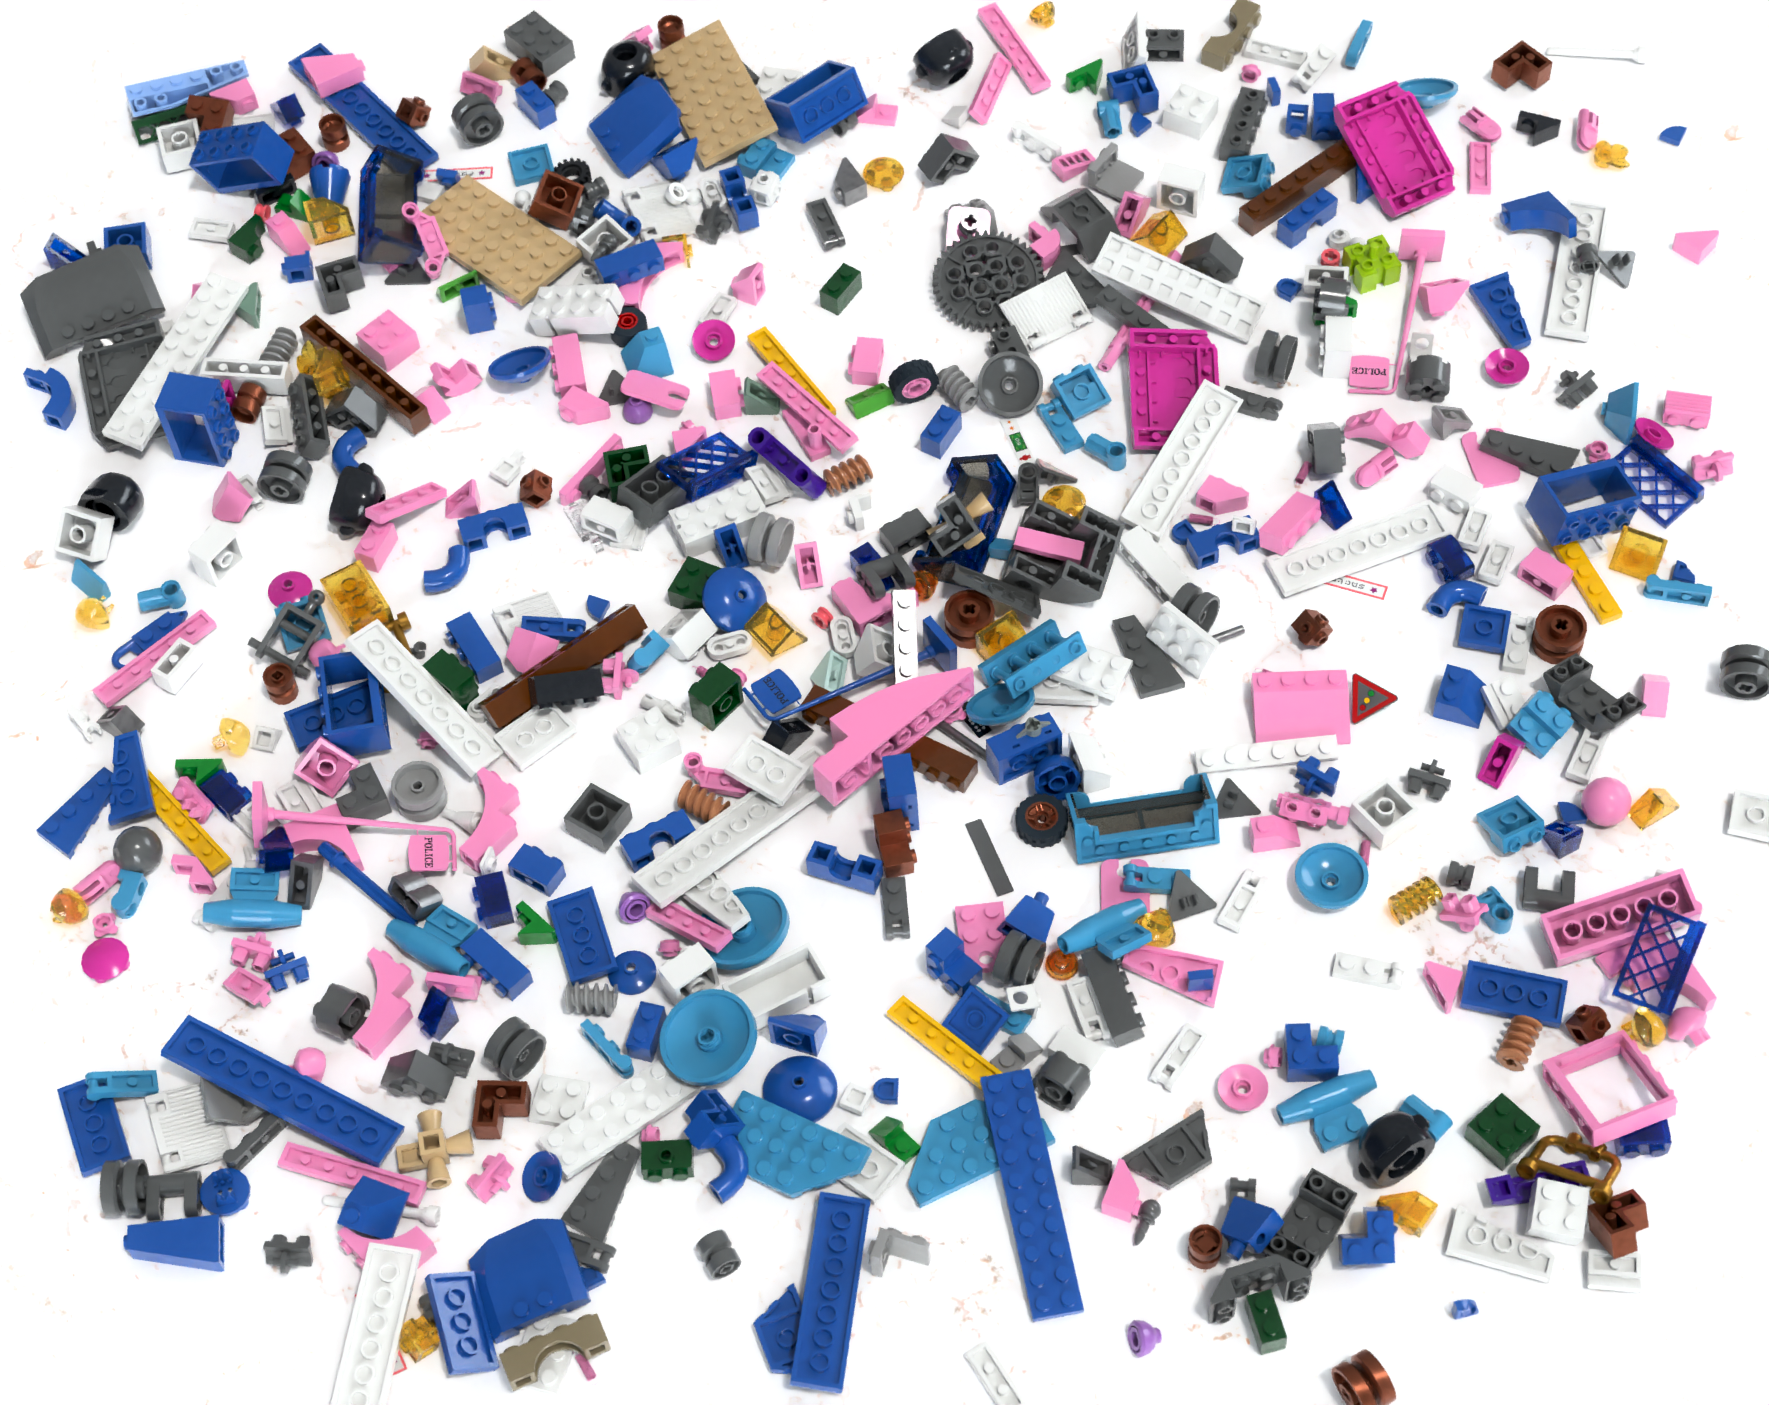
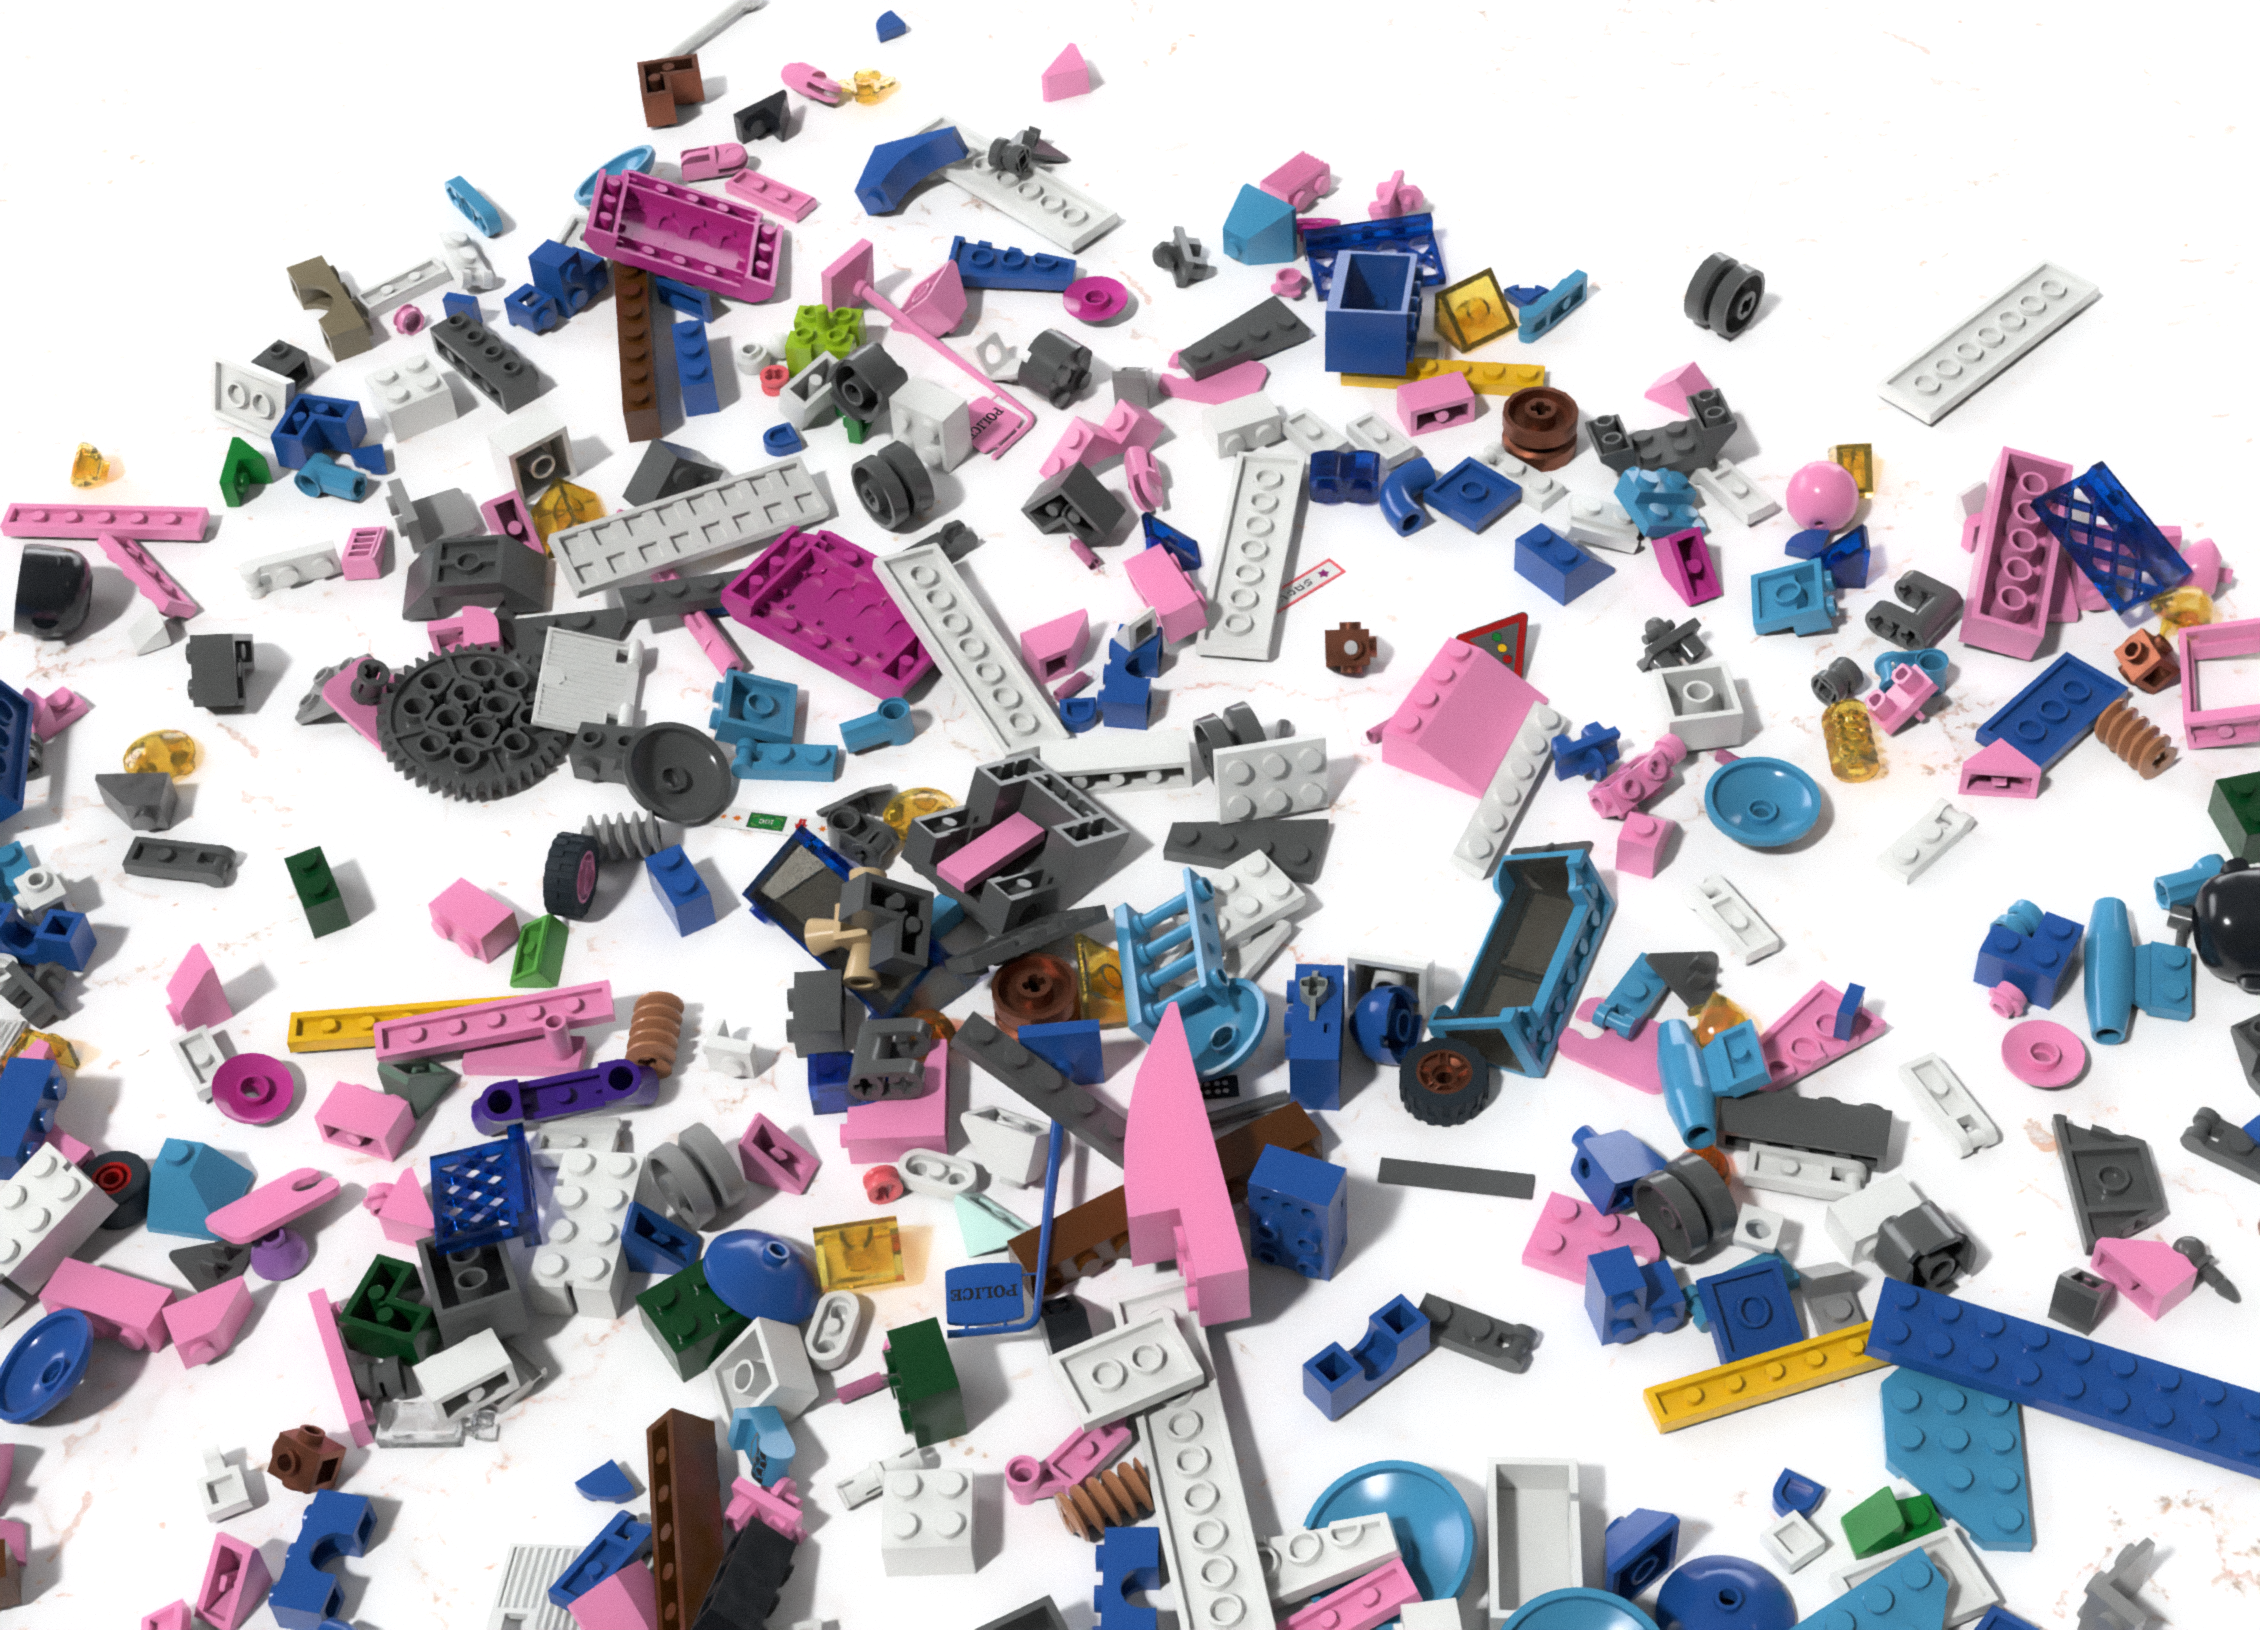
camera: 60 degrees left, 10 degrees down
(893, 841) = (1359, 1275): copper brick -> none
(1247, 175) = (571, 389): dark azure plate -> none

